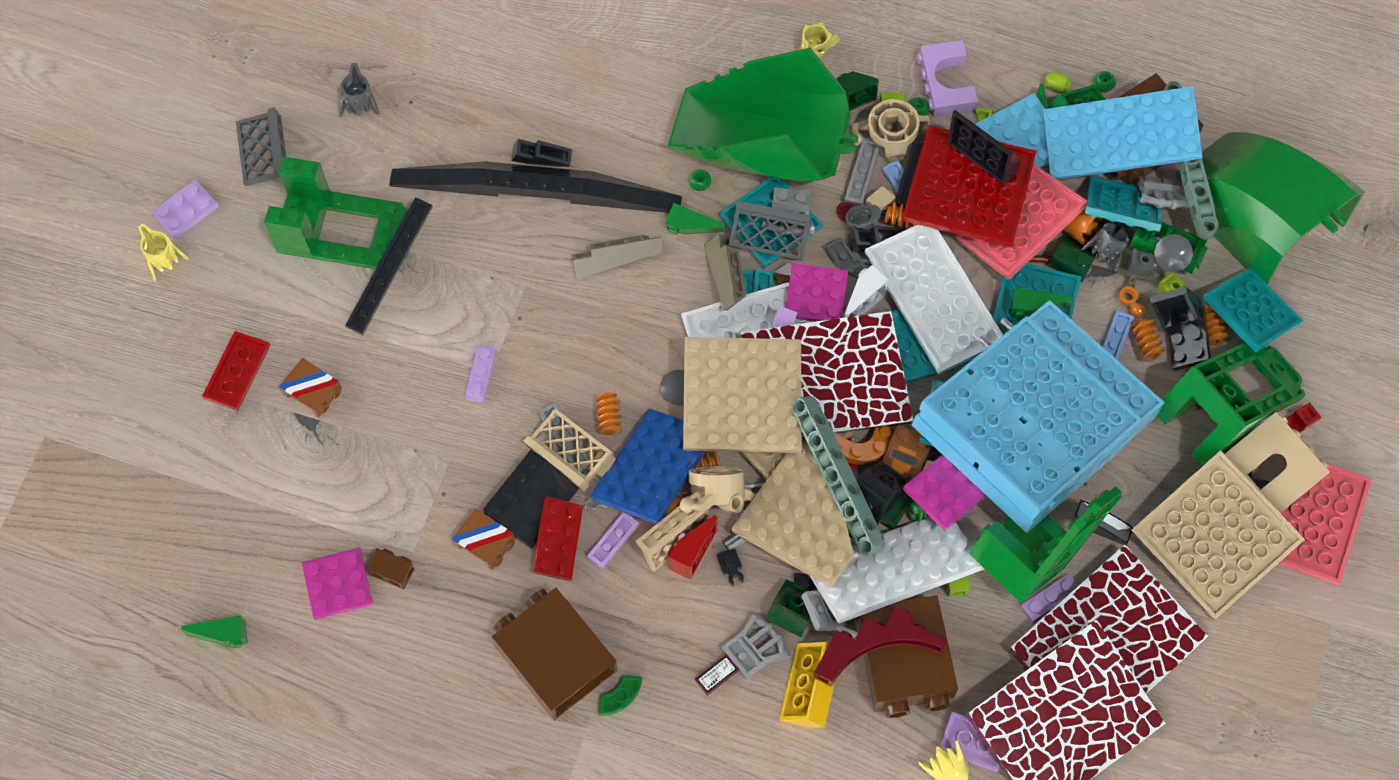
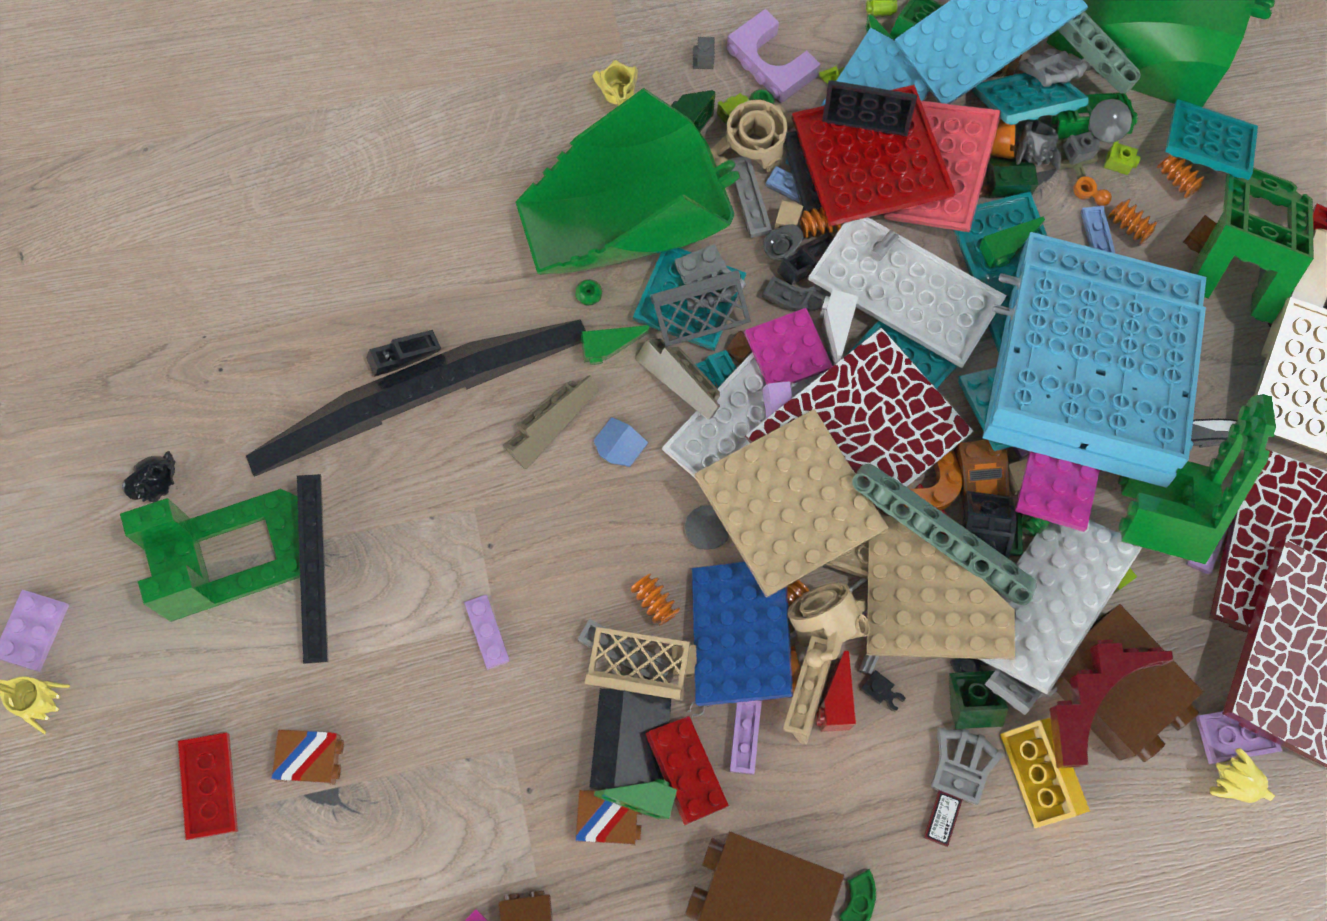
camera: 35 degrees left, 5 degrees up
(276, 141) = (91, 493): dark grey fence -> none
(320, 148) = (150, 478): none -> black hair
(356, 92) = (153, 391): dark grey piece -> none
(514, 535) = (650, 798): none -> green slope
(654, 297) = (619, 443): none -> medium blue slope
(842, 210) = (755, 247): dark red tile -> none
(896, 50) = (704, 53): none -> dark grey brick
(935, 255) = (884, 245): none -> light grey piece
(1184, 319) = (1164, 192): black bracket -> none

